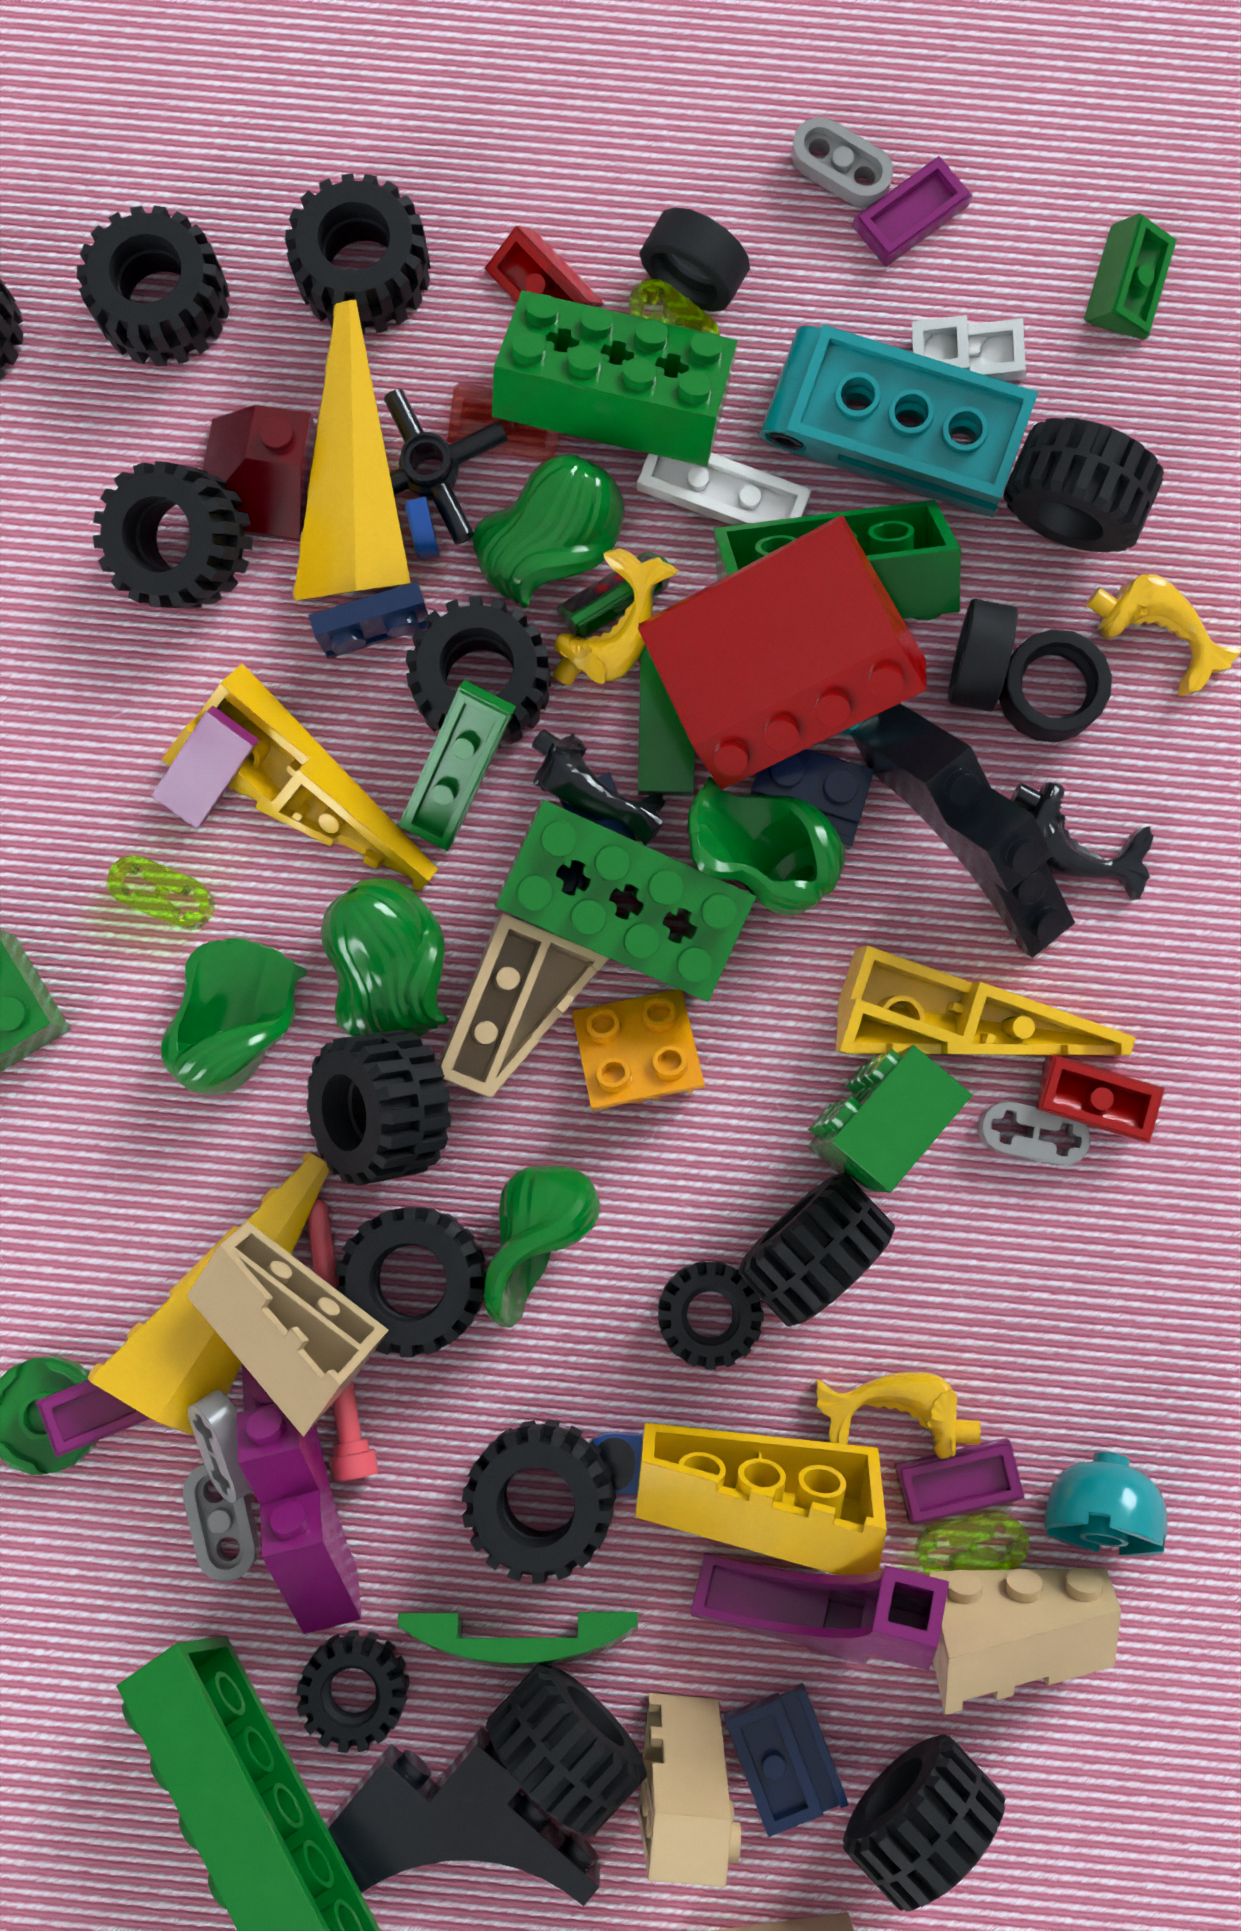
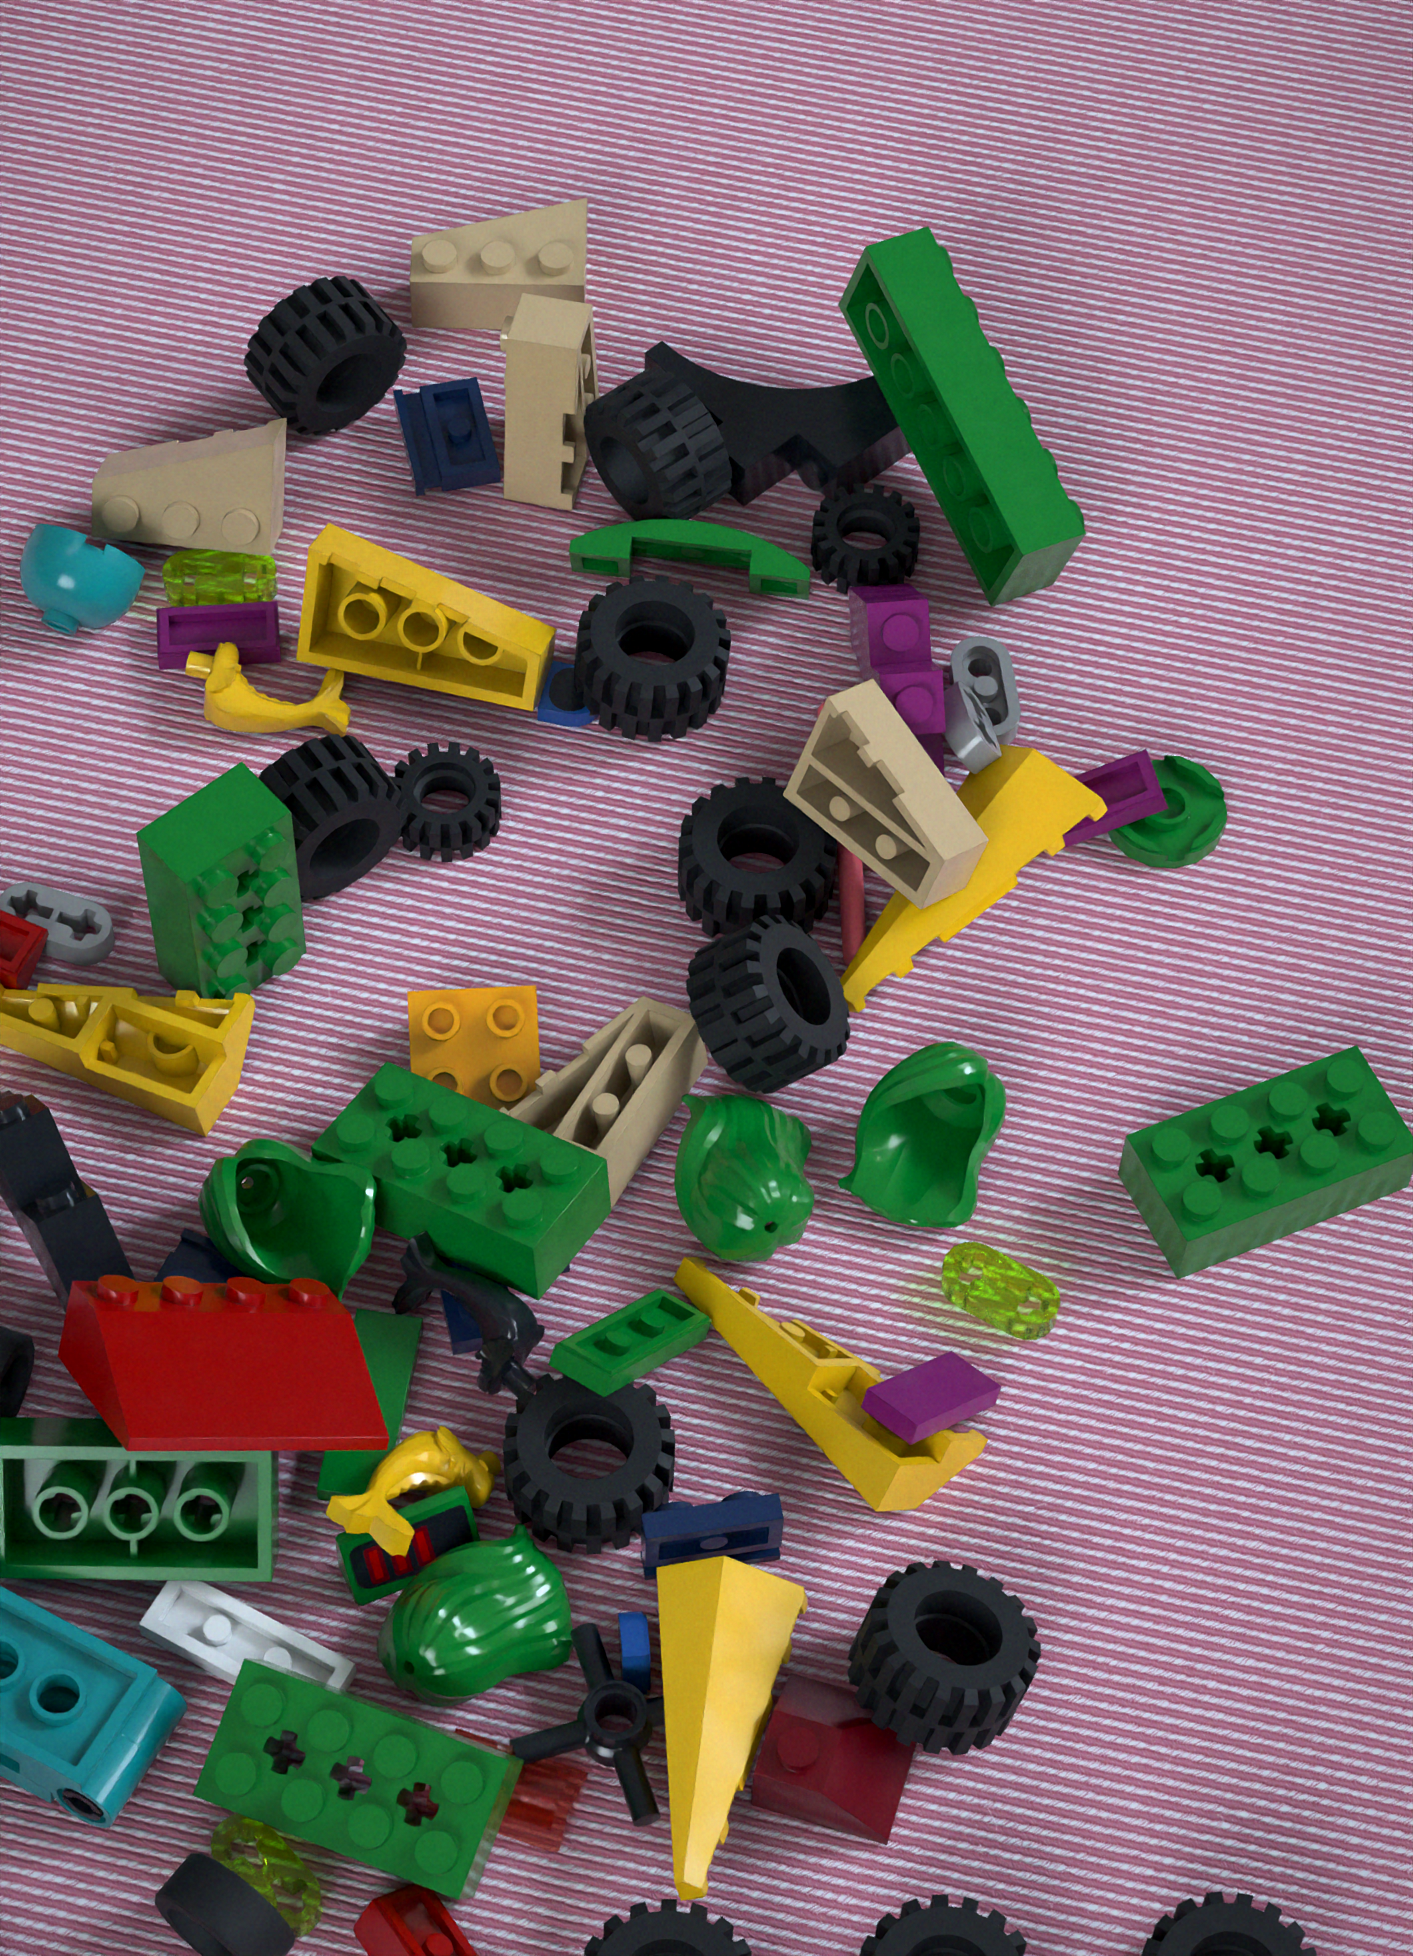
camera: 175 degrees left, 25 degrees down
(538, 1214) = (606, 878): green piece -> none
(840, 1616) = (325, 480): magenta arch -> none

